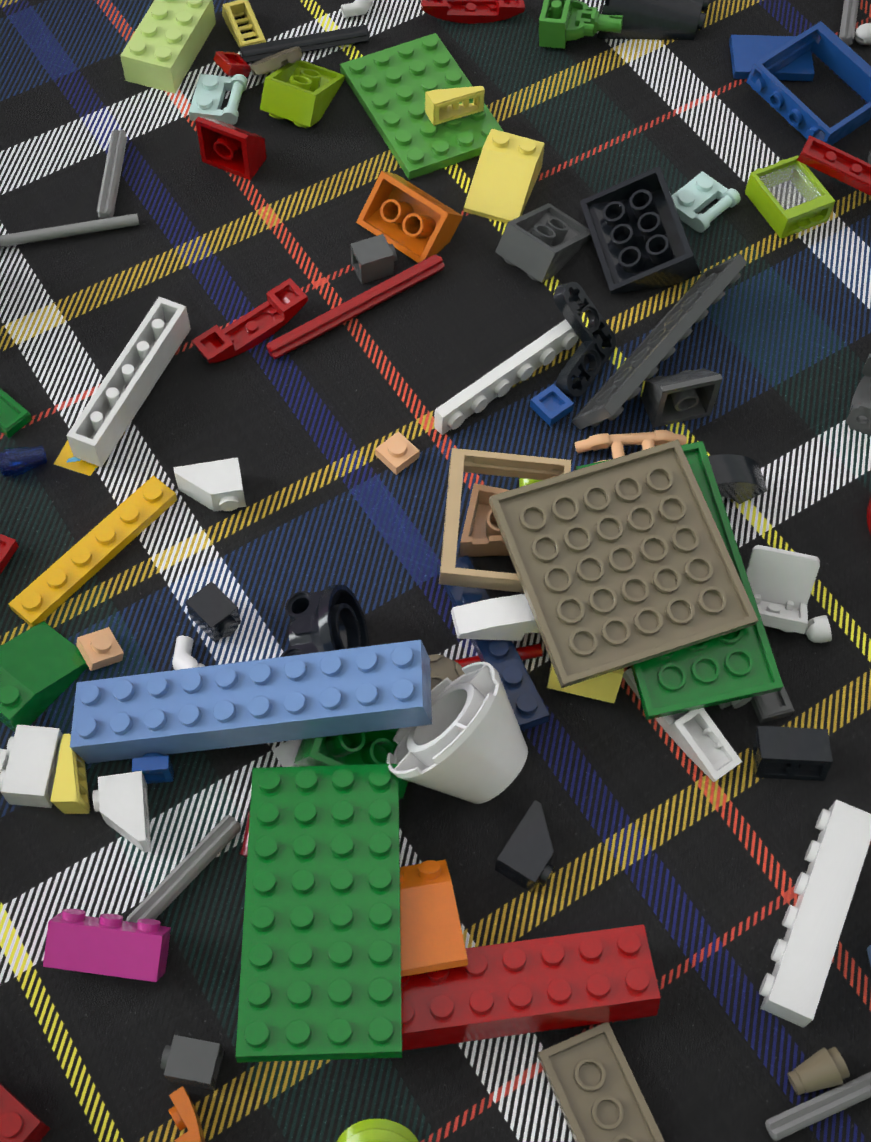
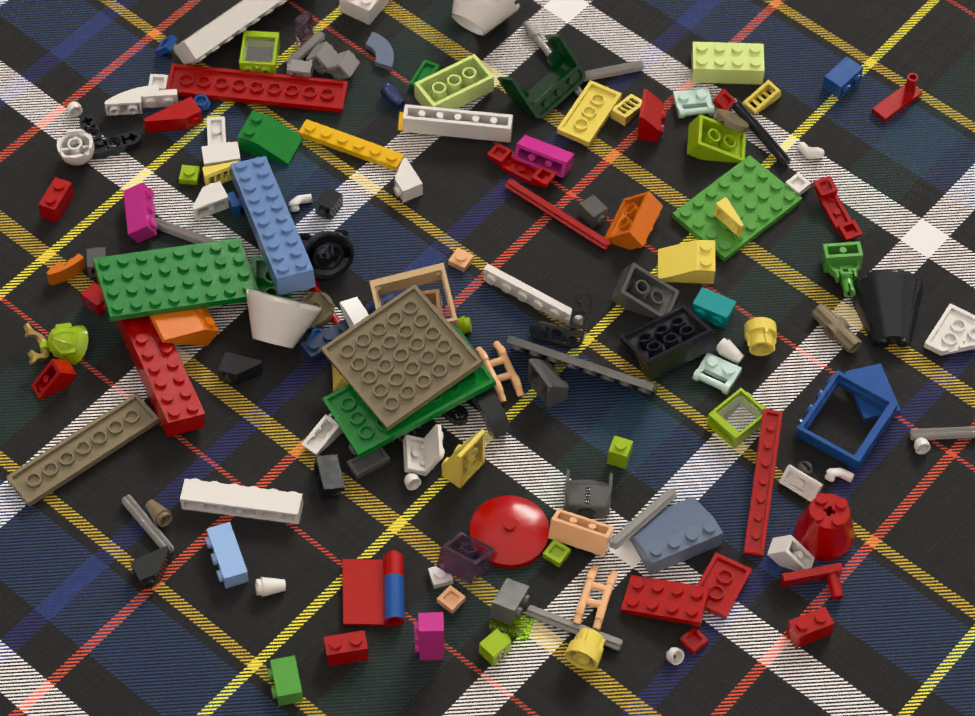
camera: 75 degrees right, 5 degrees down
(43, 835) = (189, 175): none -> lime plate
(50, 365) = (455, 84): none -> yellowish green brick
(99, 649) = (293, 164): light nougat plate -> none
(107, 235) = (554, 87): none -> dark green windscreen
(183, 216) = (589, 113): none -> light yellow plate
(191, 176) = (622, 118): none -> light yellow slope
(244, 288) = (538, 154): none -> dark pink brick
(287, 1084) = (93, 299): none -> red brick
(410, 28) = (798, 183): none -> white plate
(551, 404) = (519, 323): blue plate -> none
(594, 170) = (713, 307): none -> teal brick
(664, 59) = (836, 328): none -> dark tan piece
(665, 131) = (760, 335): none -> light yellow piece
(676, 173) = (729, 351): none -> white cone
(816, 524) = (465, 460): none -> light yellow slope
(822, 341) = (620, 452): none -> lime brick

